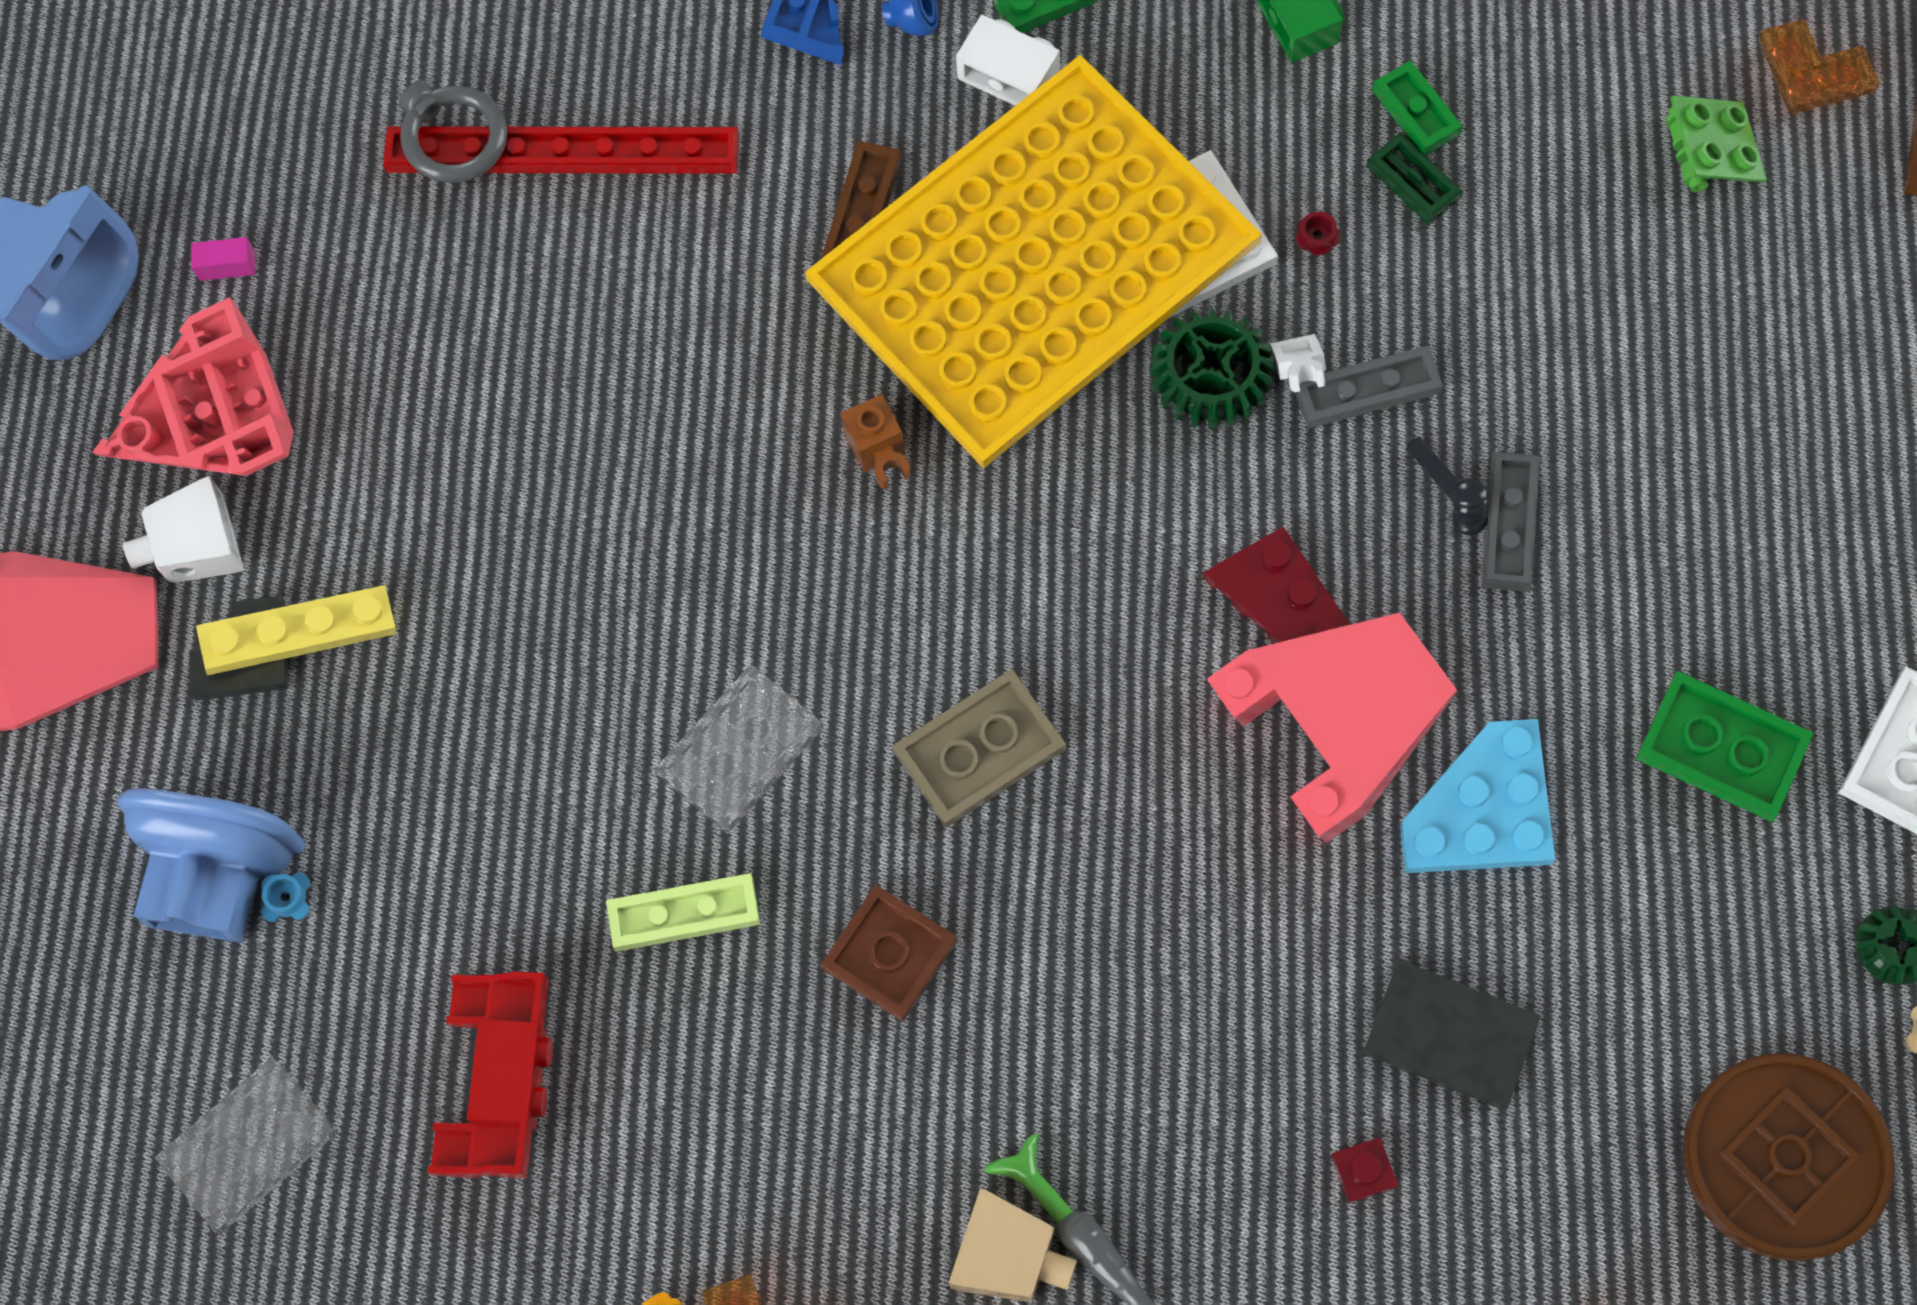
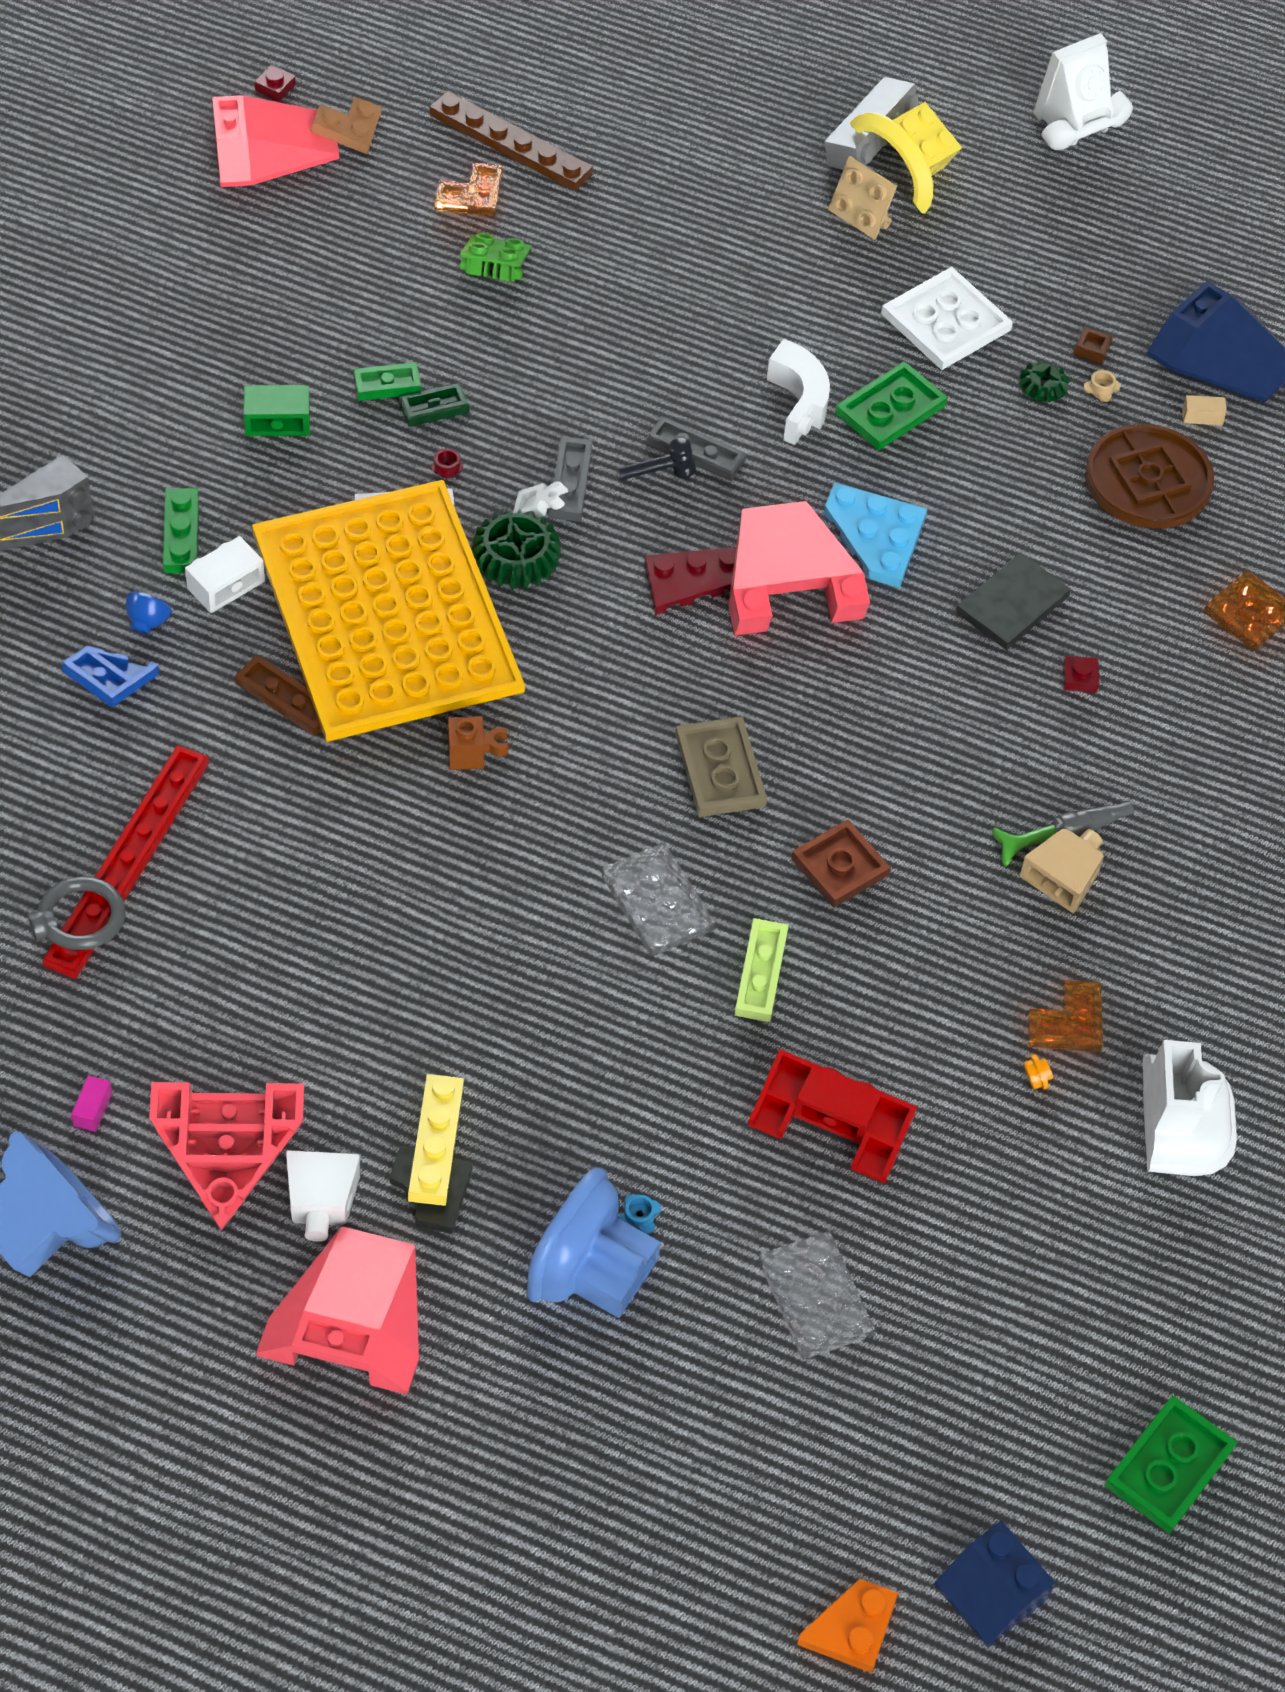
camera: 80 degrees left, 15 degrees down
(1716, 596) = (808, 380): none -> white arch

